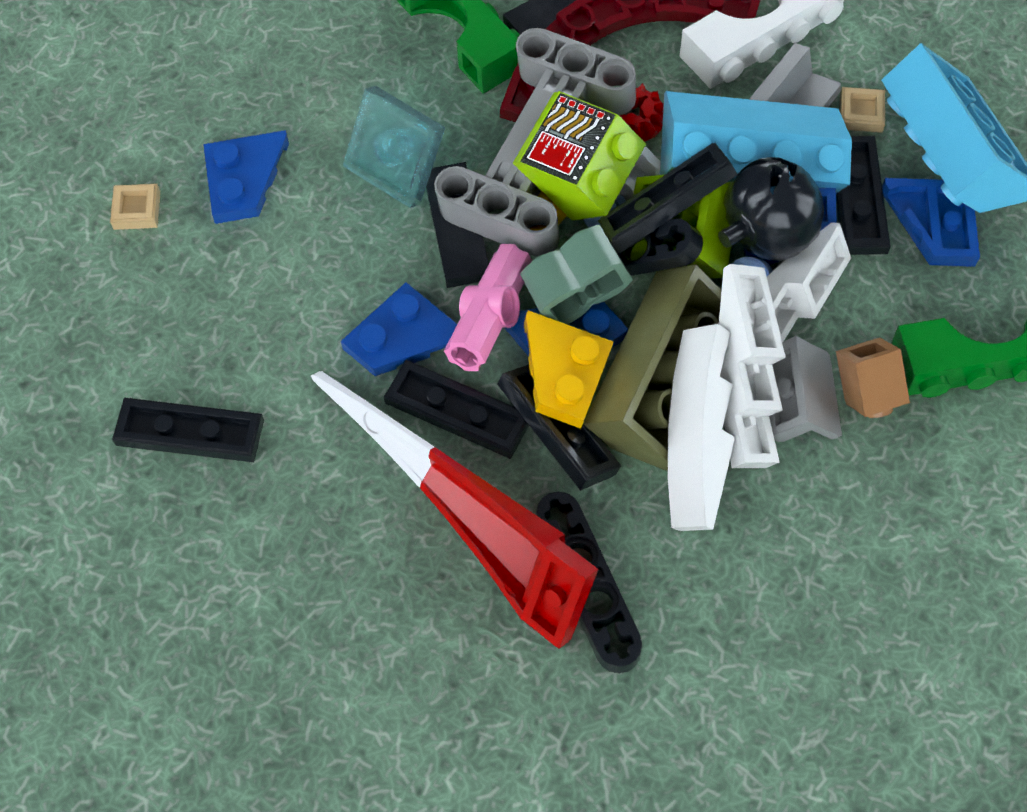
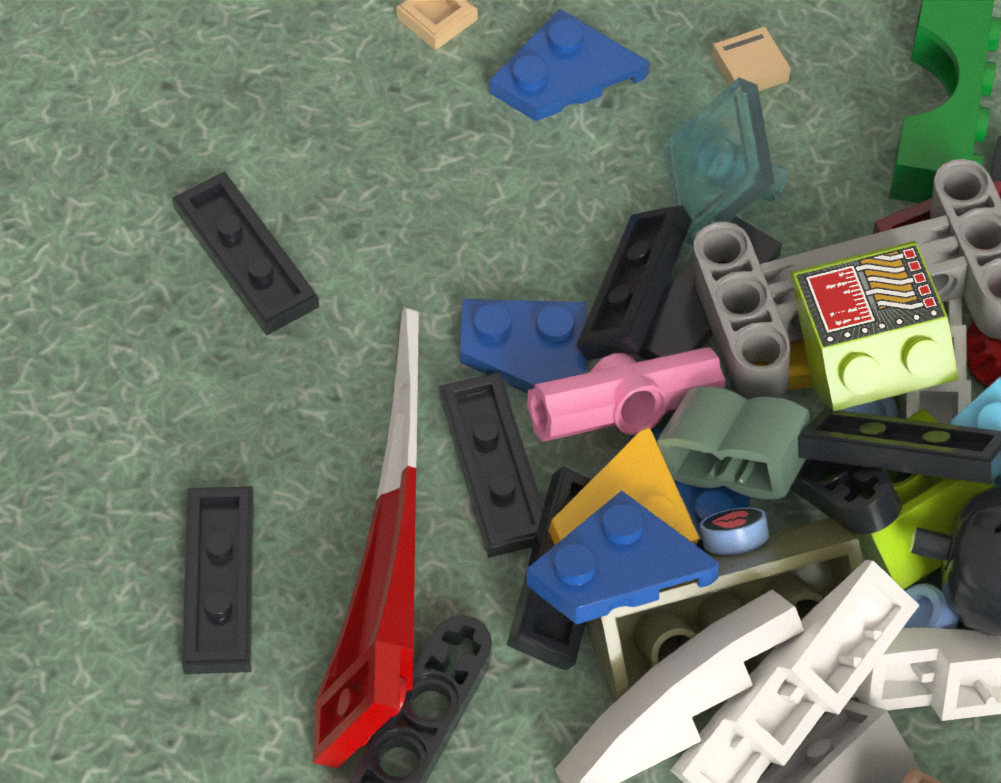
camera: 45 degrees right, 5 degrees down
(335, 85) = (752, 58): none -> tan tile
(392, 611) = (218, 580): none -> black tile
(422, 248) = (634, 283): none -> black tile
(604, 387) = (617, 561): none -> blue wing
(625, 321) = (734, 531): none -> light blue tile

